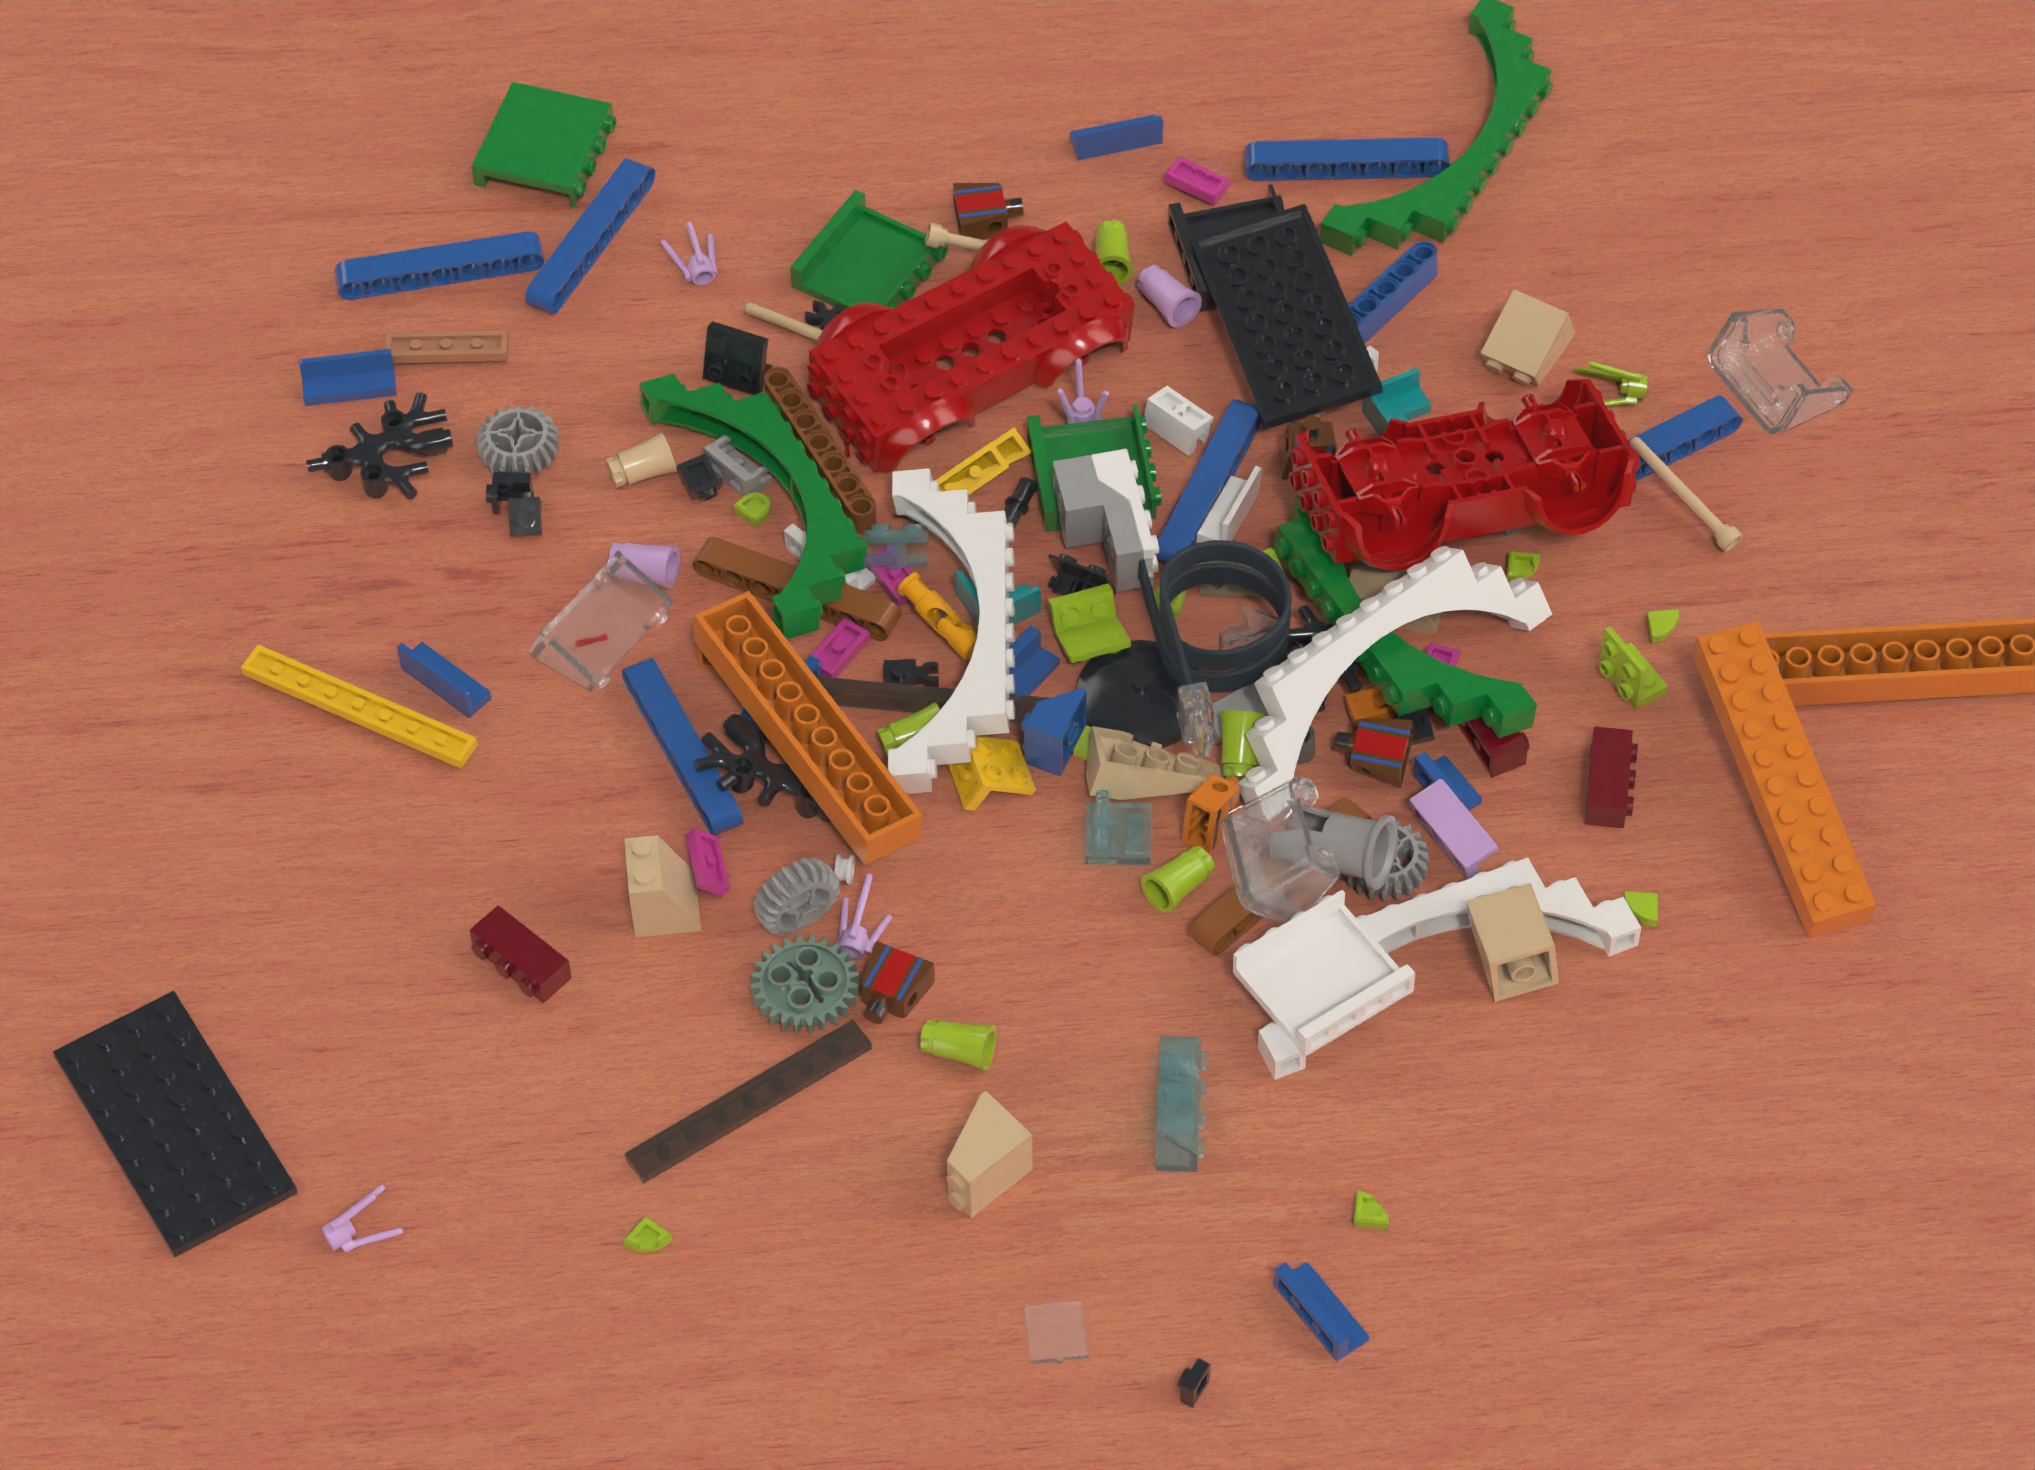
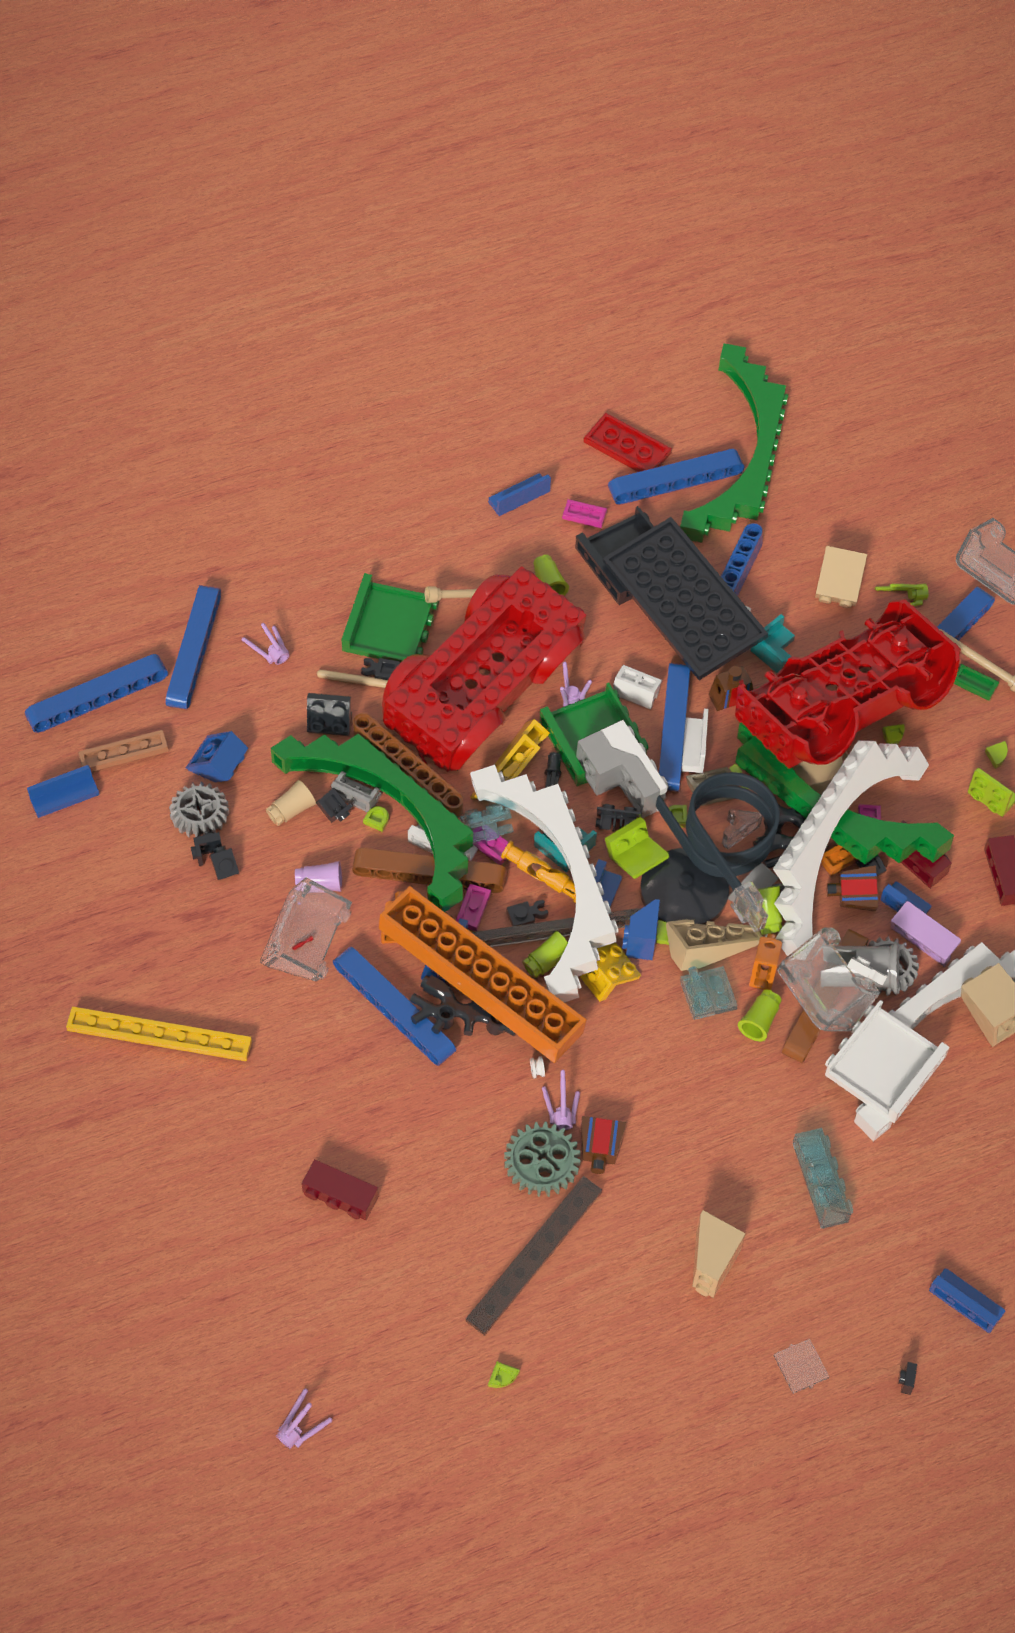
camera: 20 degrees left, 5 degrees up
(174, 1123) = (141, 1384): black plate -> none
(370, 449) = (112, 825): black plant -> none
(443, 678) = (210, 997): blue panel -> none
(545, 140) = (137, 585): green panel -> none
(569, 381) = (218, 756): none -> blue slope
(660, 889) = (420, 1118): tan slope -> none
(707, 862) = (443, 1087): dark pink plate -> none
(796, 896) = (516, 1098): light grey gear -> none
(960, 1042) = (661, 1173): lime plant -> none
(982, 209) = (452, 567): reddish brown torso -> none
(1169, 296) = (598, 599): lavender plant -> none
(1295, 102) = (626, 444): none -> red tile
(1325, 835) = (862, 966): none -> white plate
(1369, 1213) = (971, 1221): lime tile -> none
(1670, 523) = (976, 682): none -> green tile

